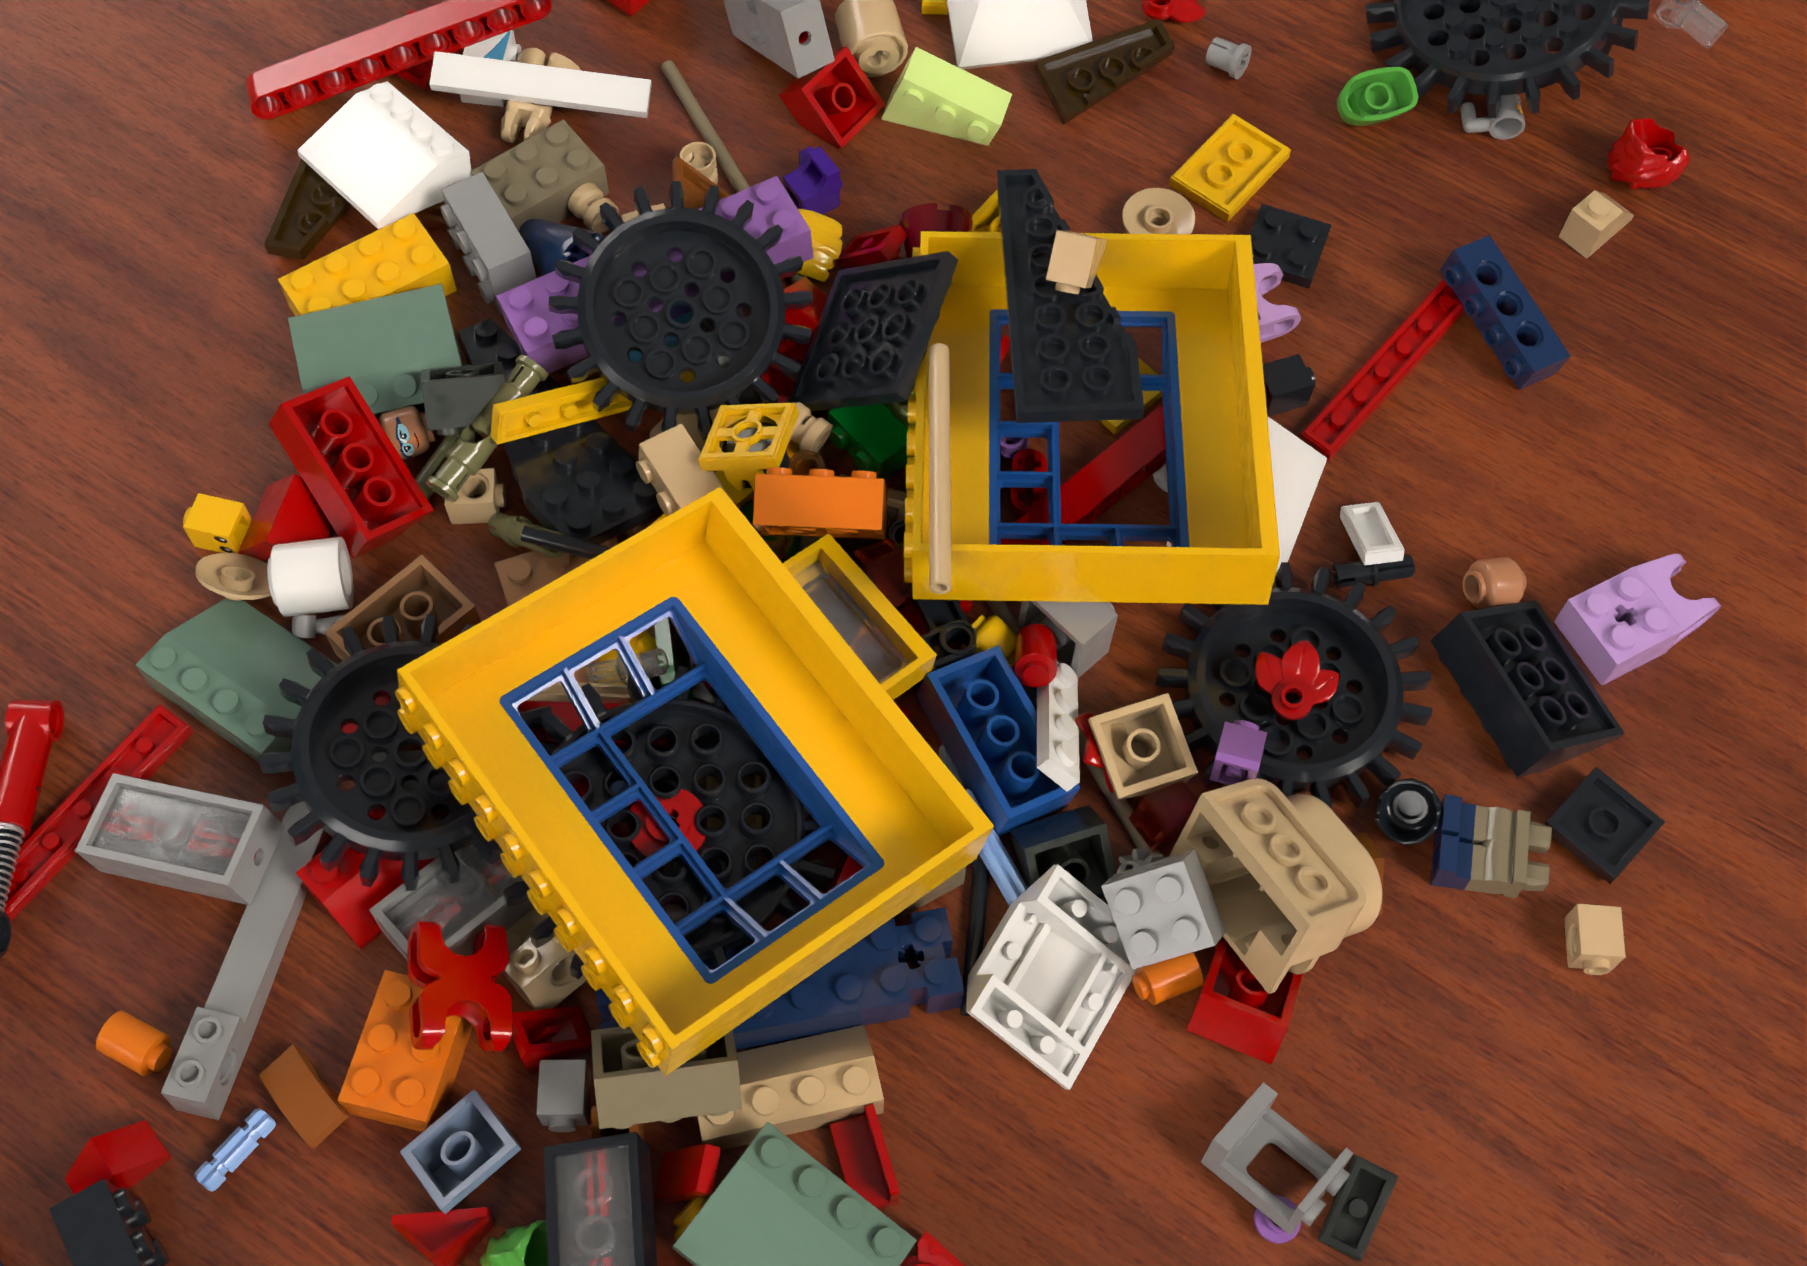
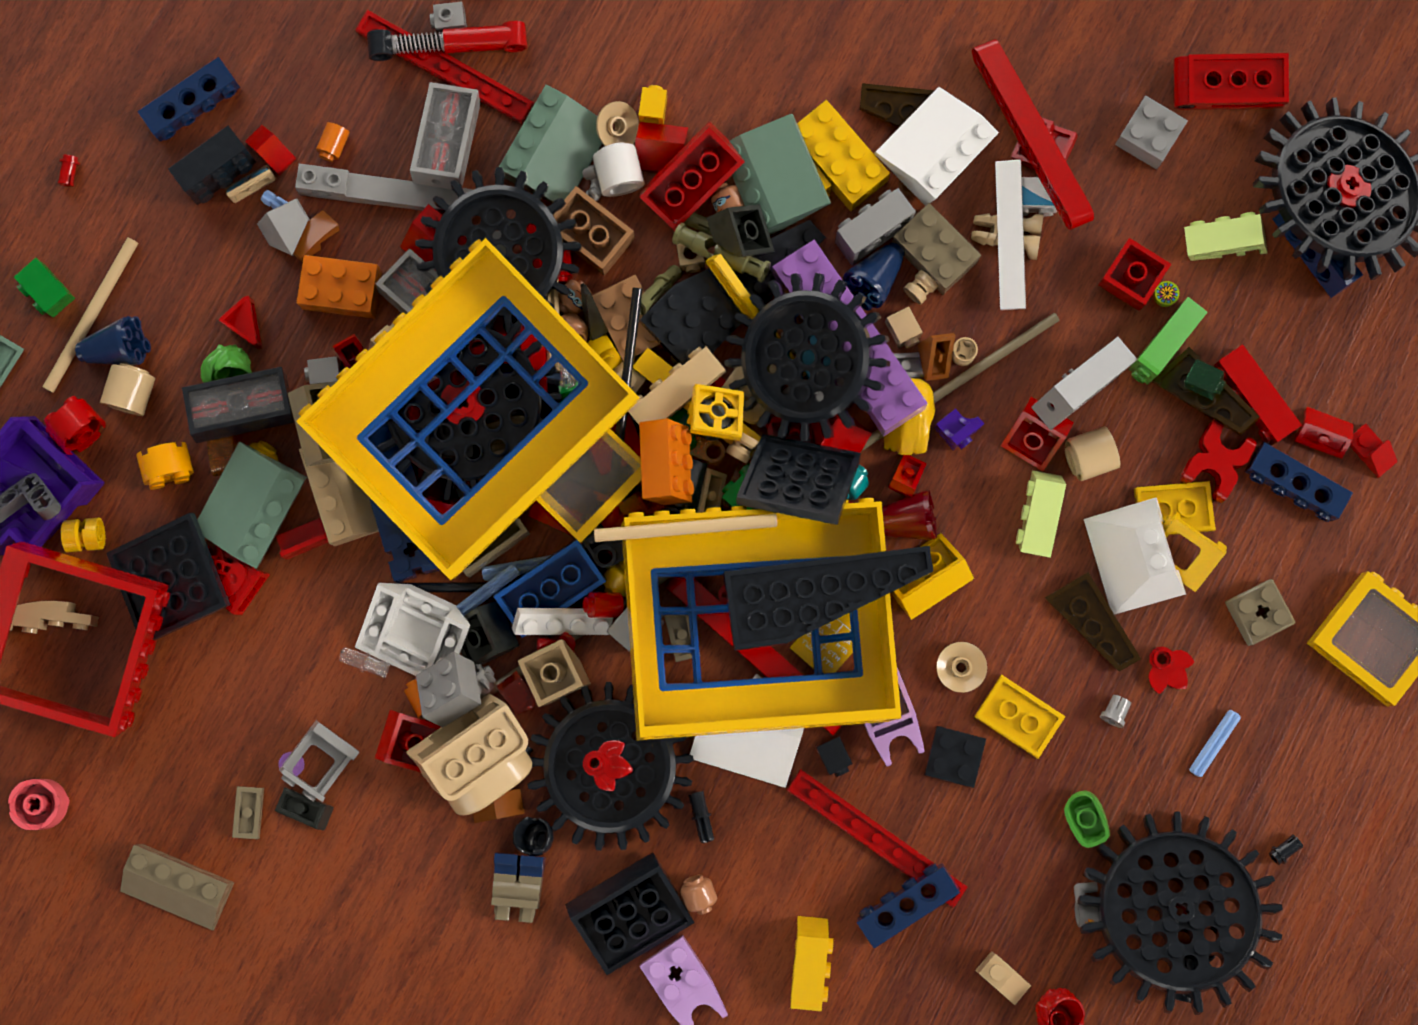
camera: 90 degrees right, 20 degrees up
(172, 1208) = (250, 184): none -> tan slope
(276, 1142) = (284, 226): none -> light grey slope
(459, 986) = (363, 304): red piece -> none
(460, 1151) = (282, 326): sand blue slope -> none
(687, 1173) = (282, 444): red tile -> none
(1075, 260) = (846, 600): tan slope -> none
(1098, 1071) = (364, 662): none -> clear axle
(1238, 753) = (545, 728): medium lavender slope -> none
(1371, 533) = (726, 815): white tile -> none
(1594, 440) = (811, 964): none -> yellow wedge
(1594, 938) = (466, 947): tan brick -> none
(1603, 825) = (540, 957): black plate -> none

